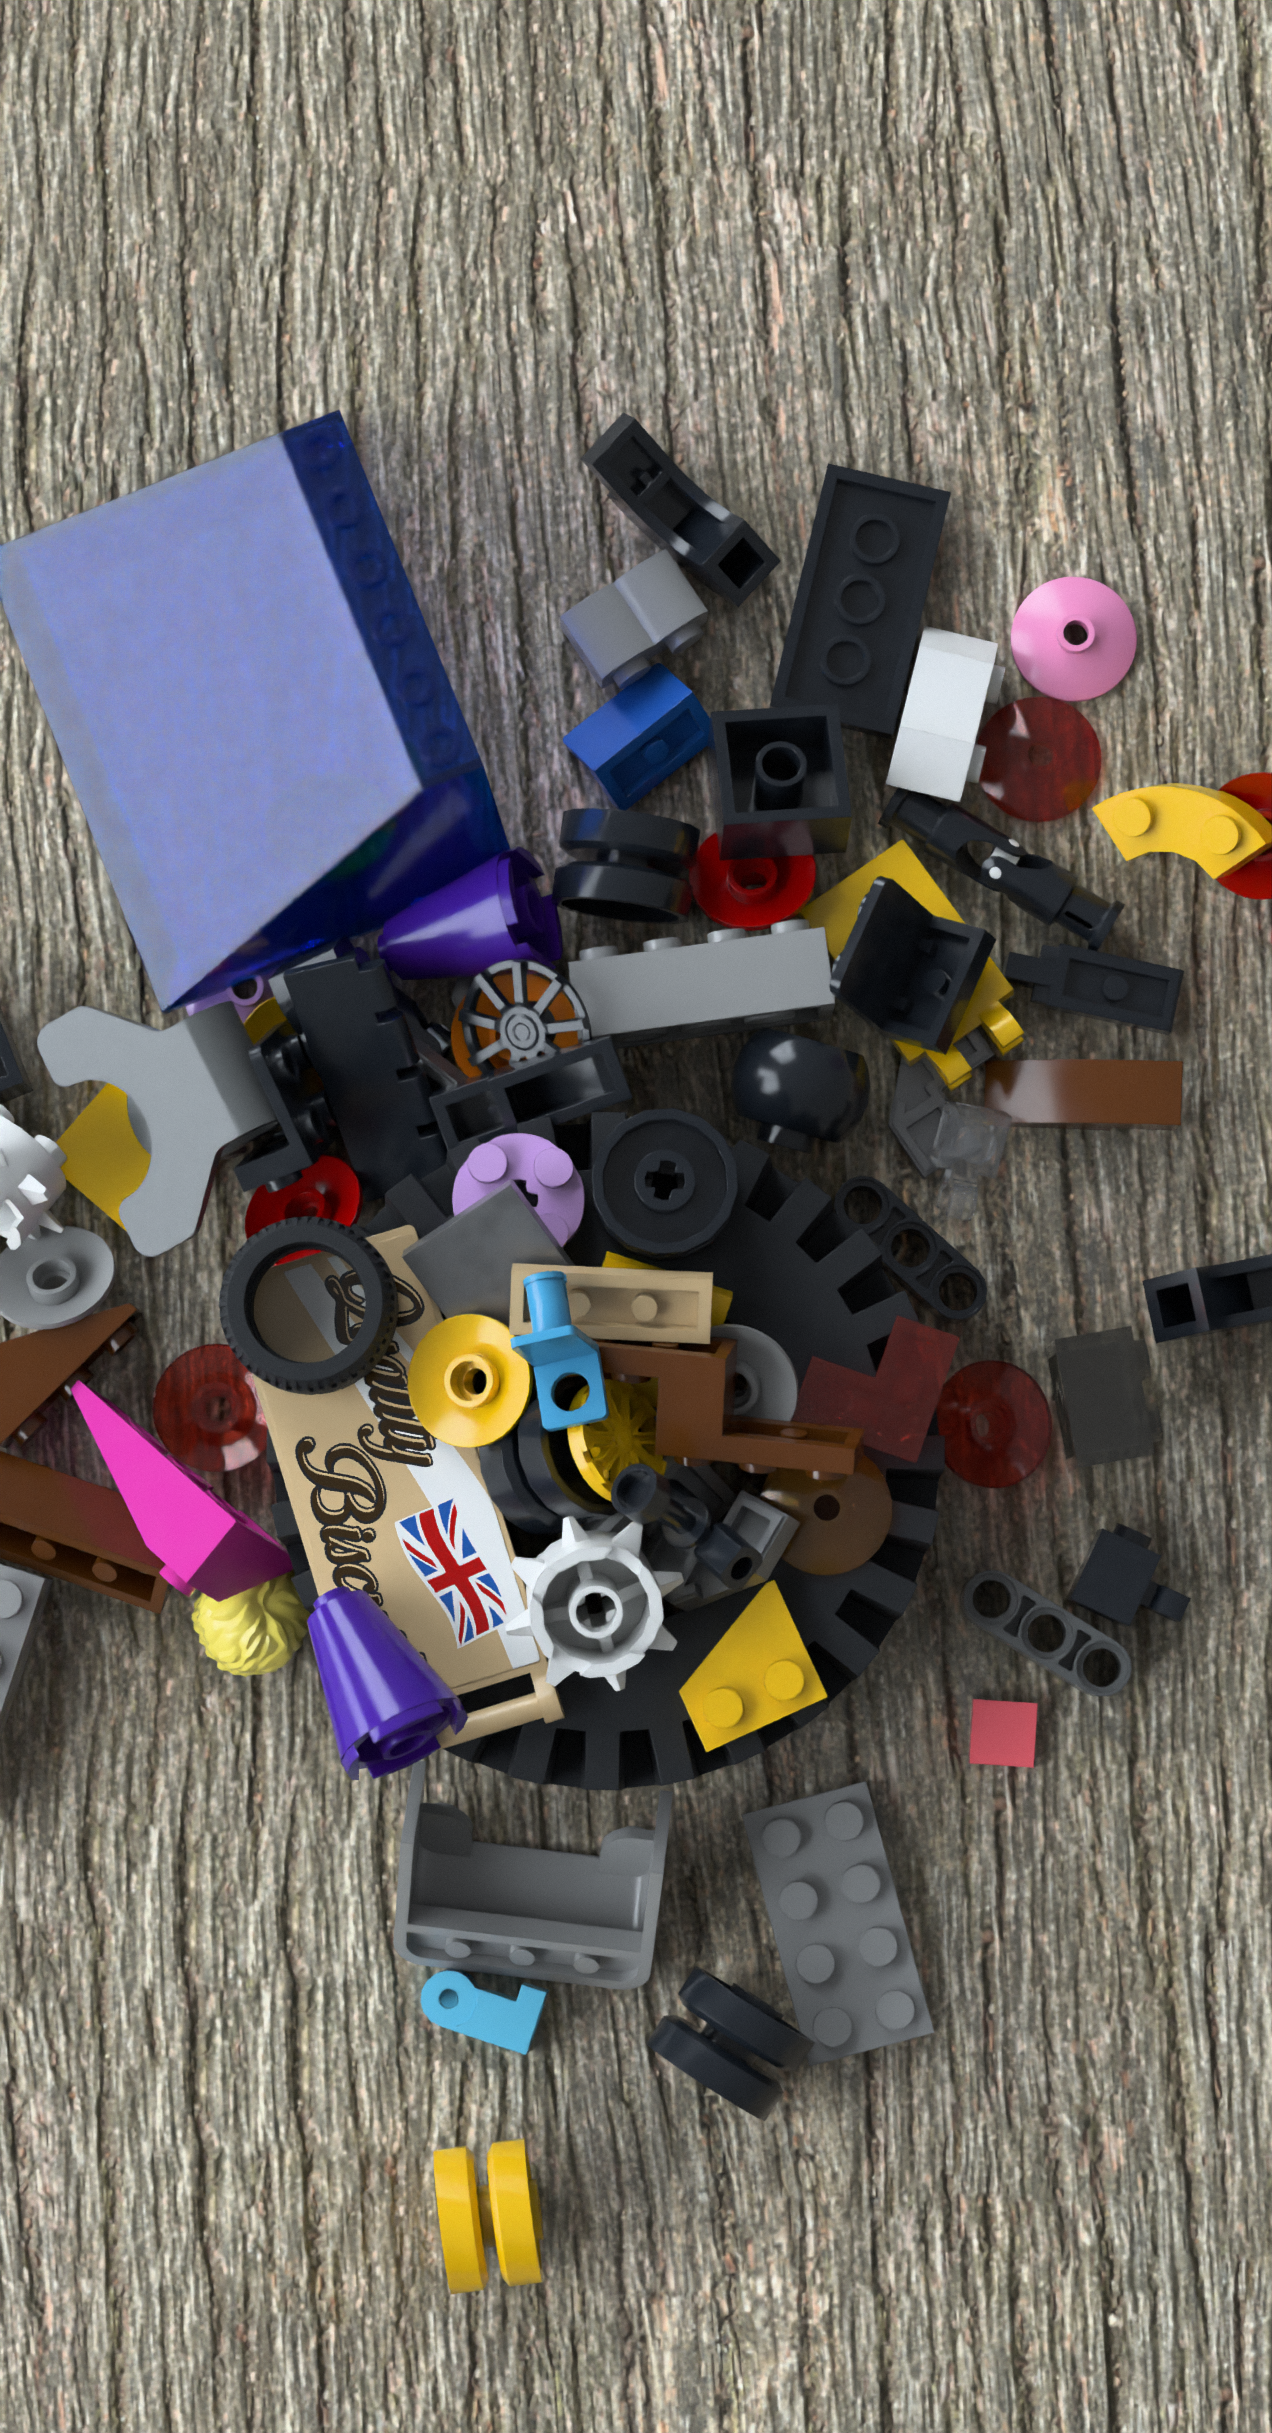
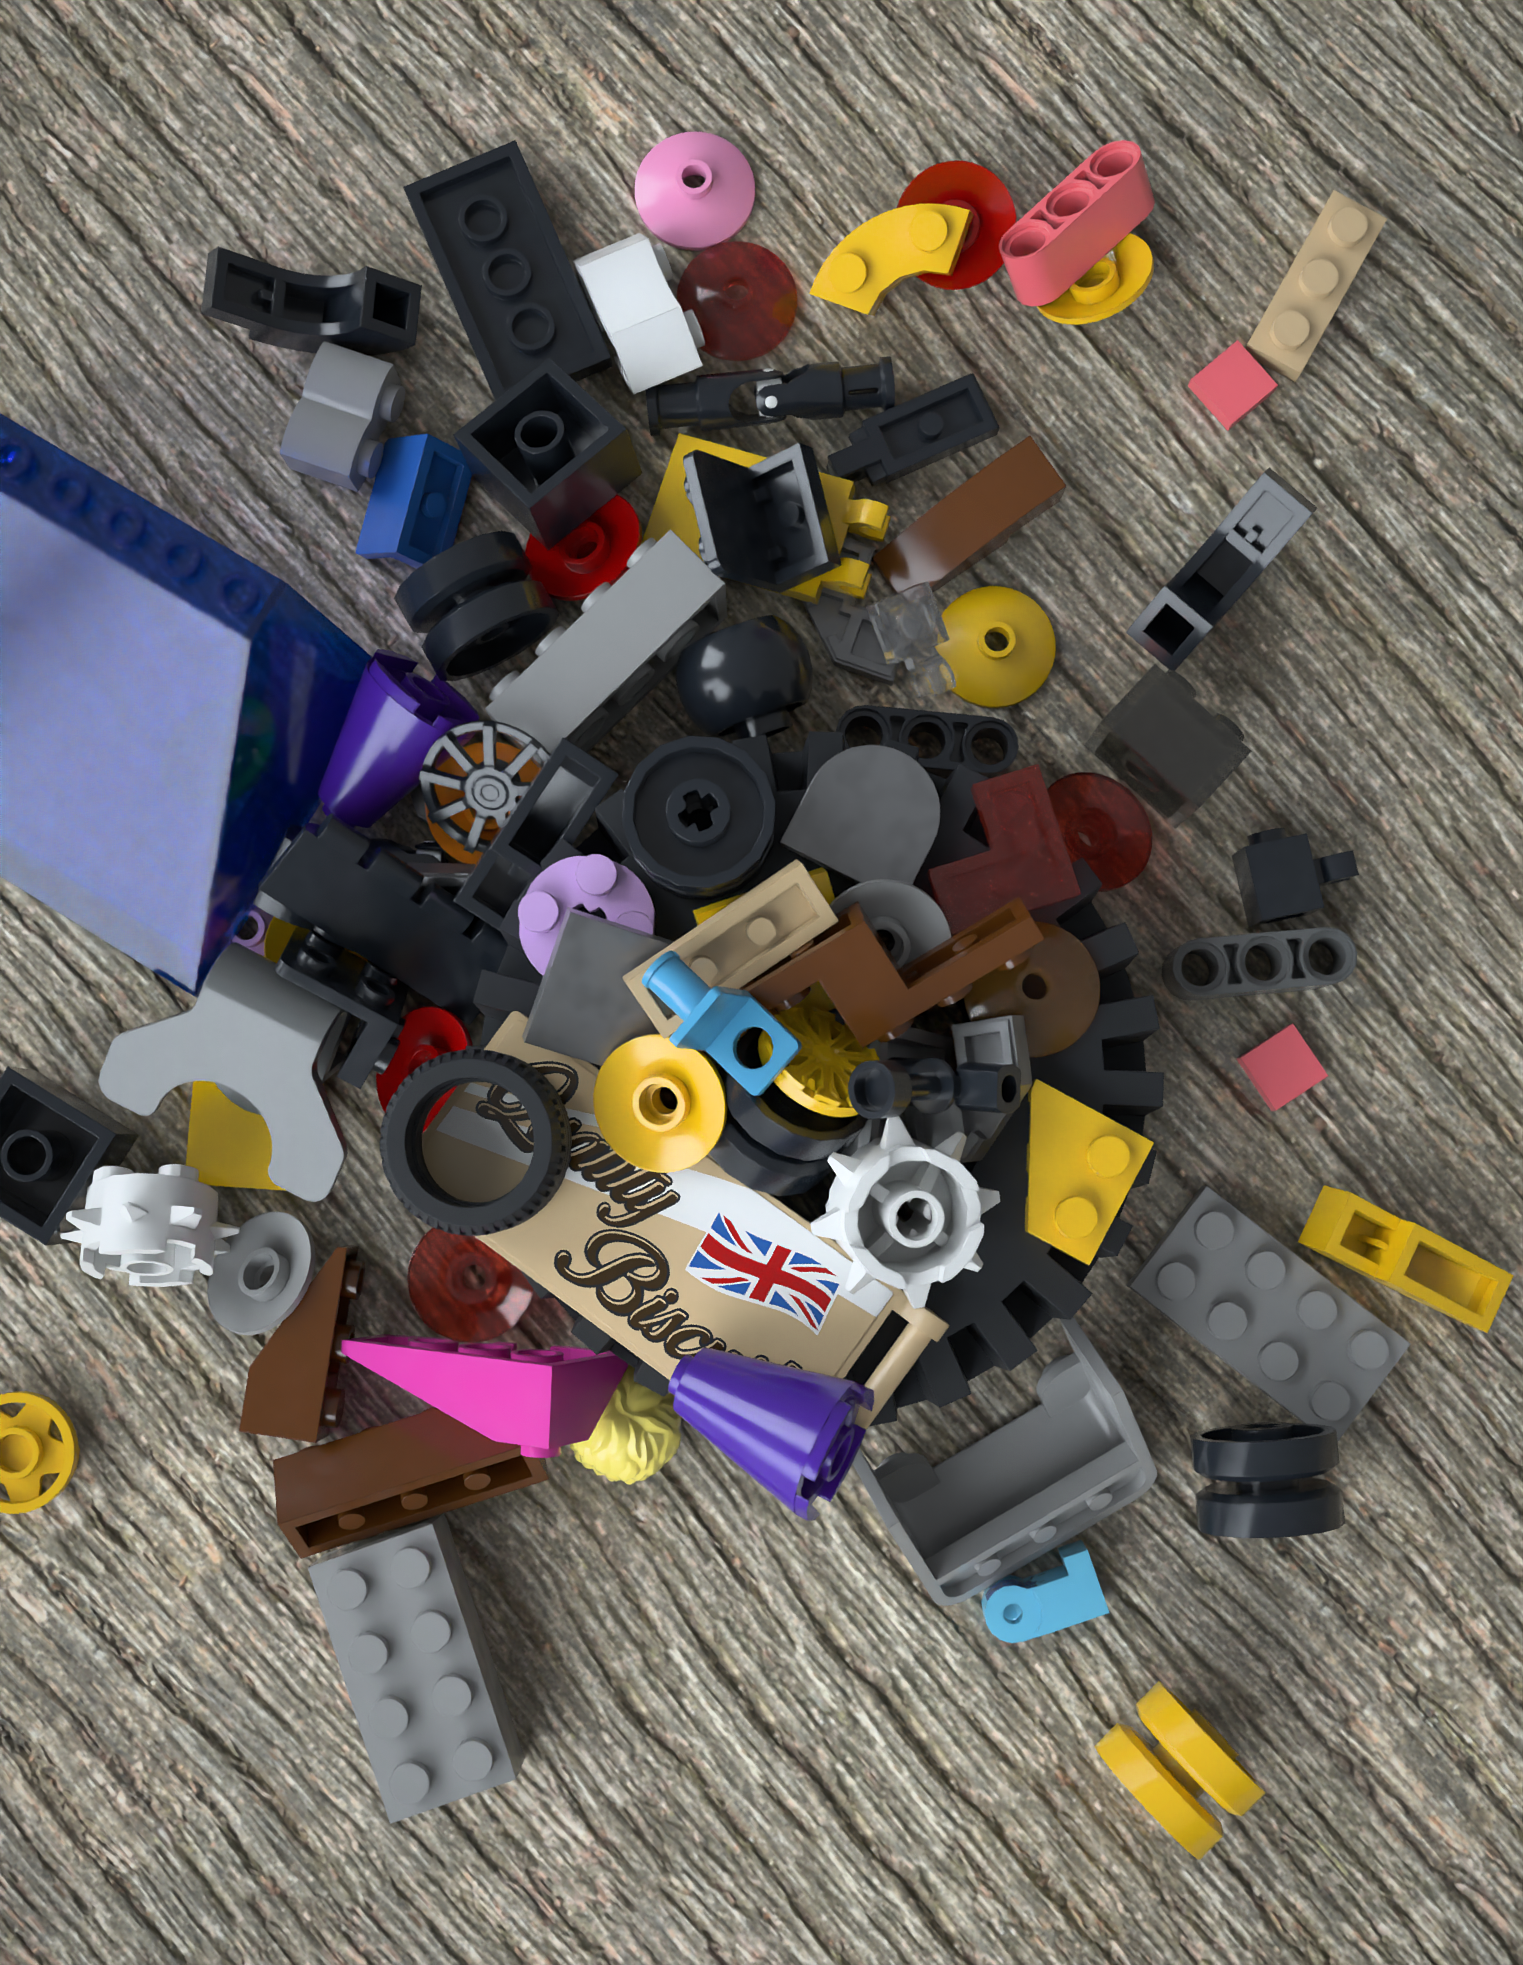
camera: 35 degrees left, 0 degrees up
(798, 1279) = (867, 816): none -> flat silver tile
(983, 1961) = (1405, 1258): none -> yellow slope
(1026, 1243) = (1003, 676): none -> yellow dish

